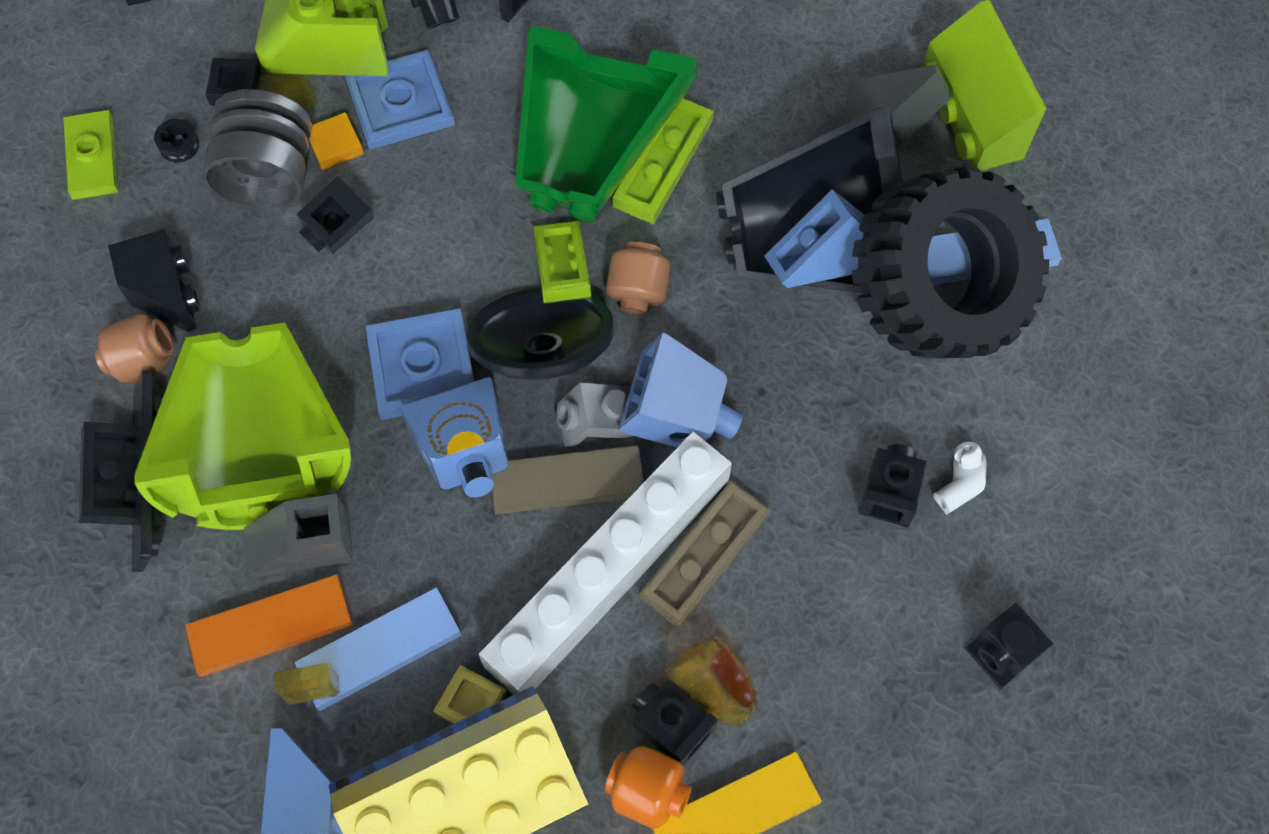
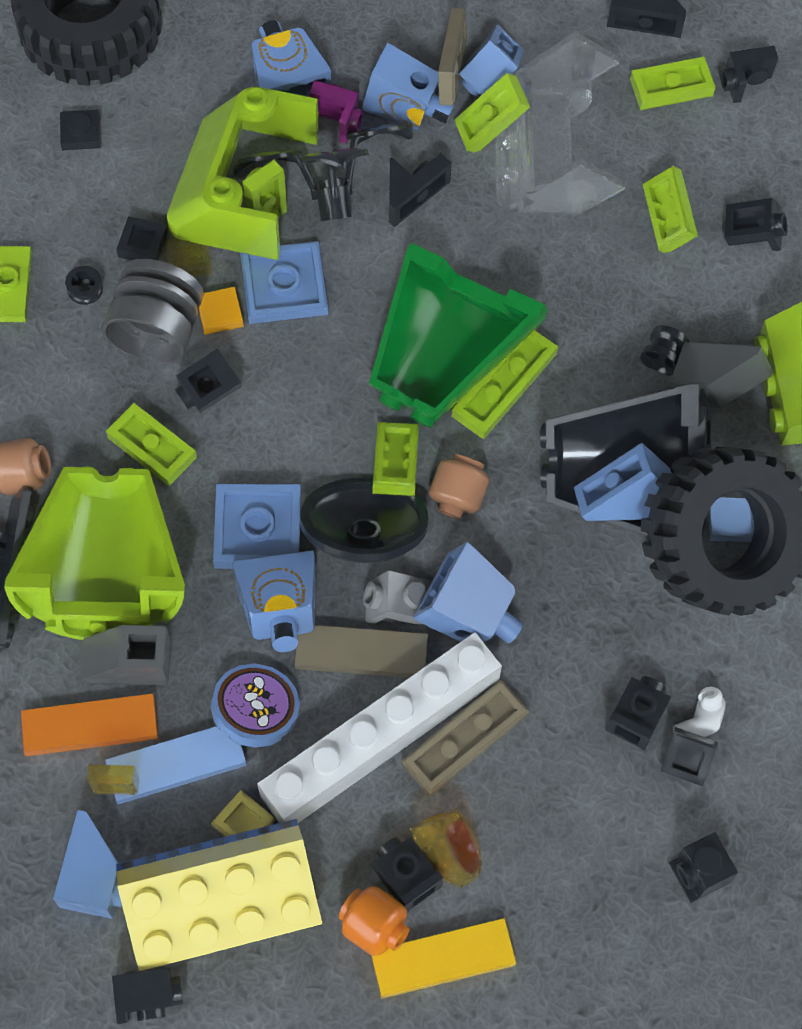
camera: 10 degrees right, 0 degrees up
(152, 278) = (43, 408): black slope -> none
(283, 296) = (151, 444): none -> lime plate
(457, 564) = (255, 705): none -> tile
(827, 94) = (664, 349): none -> black wheel
(960, 524) = (689, 756): none -> black tile

